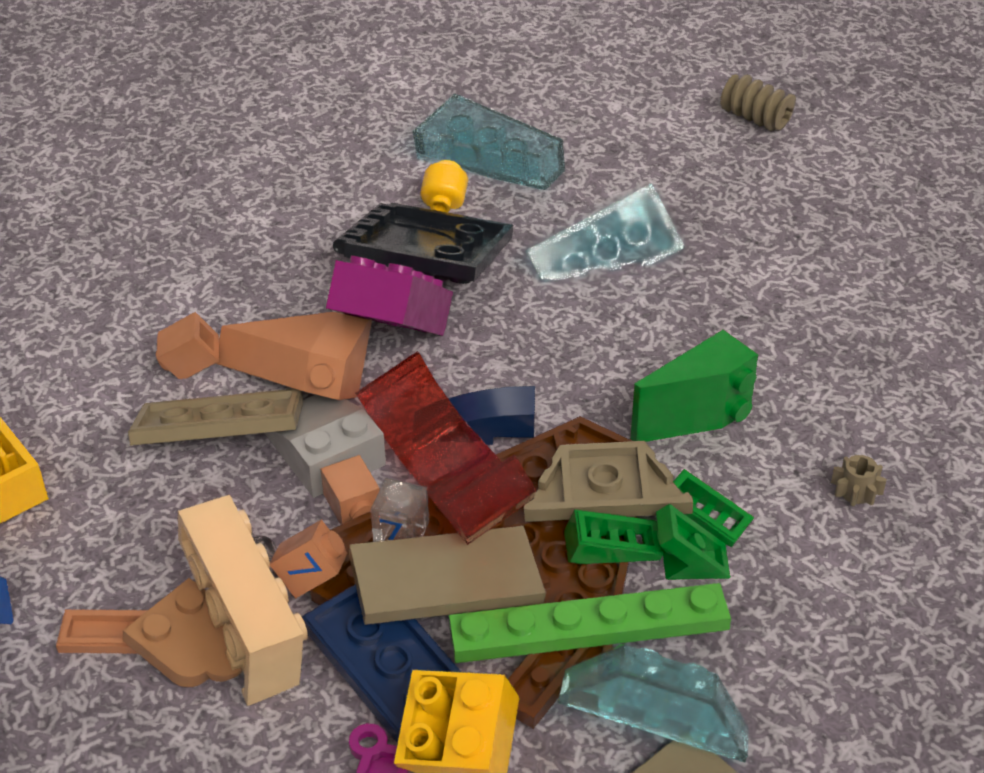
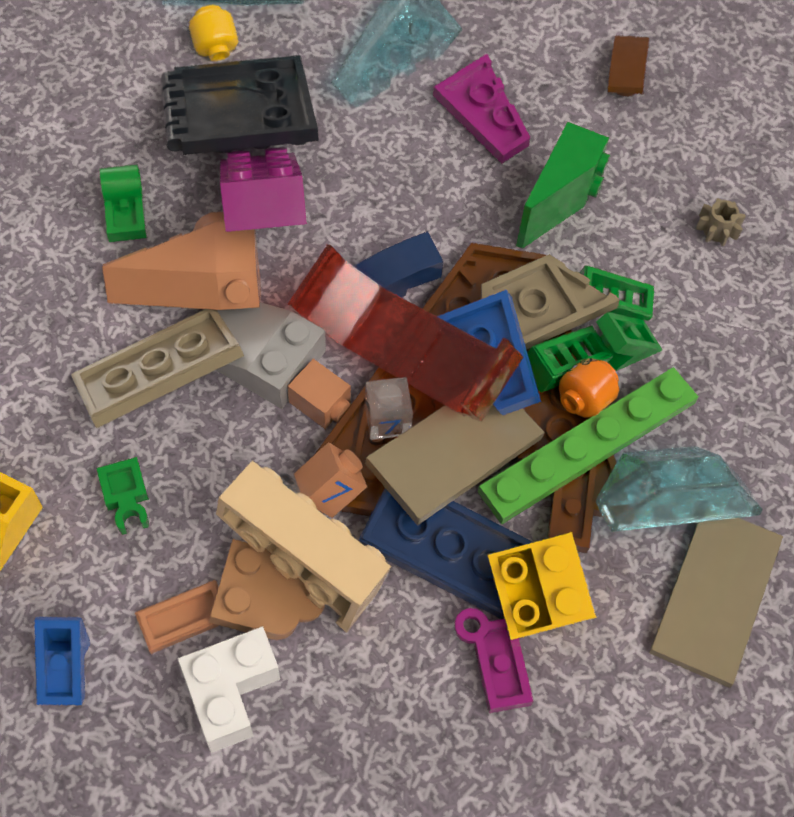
camera: 30 degrees left, 20 degrees up
(101, 688) = (219, 677): none -> white brick
(122, 506) = (123, 489): none -> green plate
(187, 346) = (80, 300): nougat brick -> none
(279, 288) = (123, 202): none -> green plate
(533, 526) = (490, 322): none -> blue wing
(615, 568) = (589, 387): none -> orange head
(665, 313) = (482, 107): none -> magenta wing
(837, 321) = (628, 65): none -> reddish brown slope

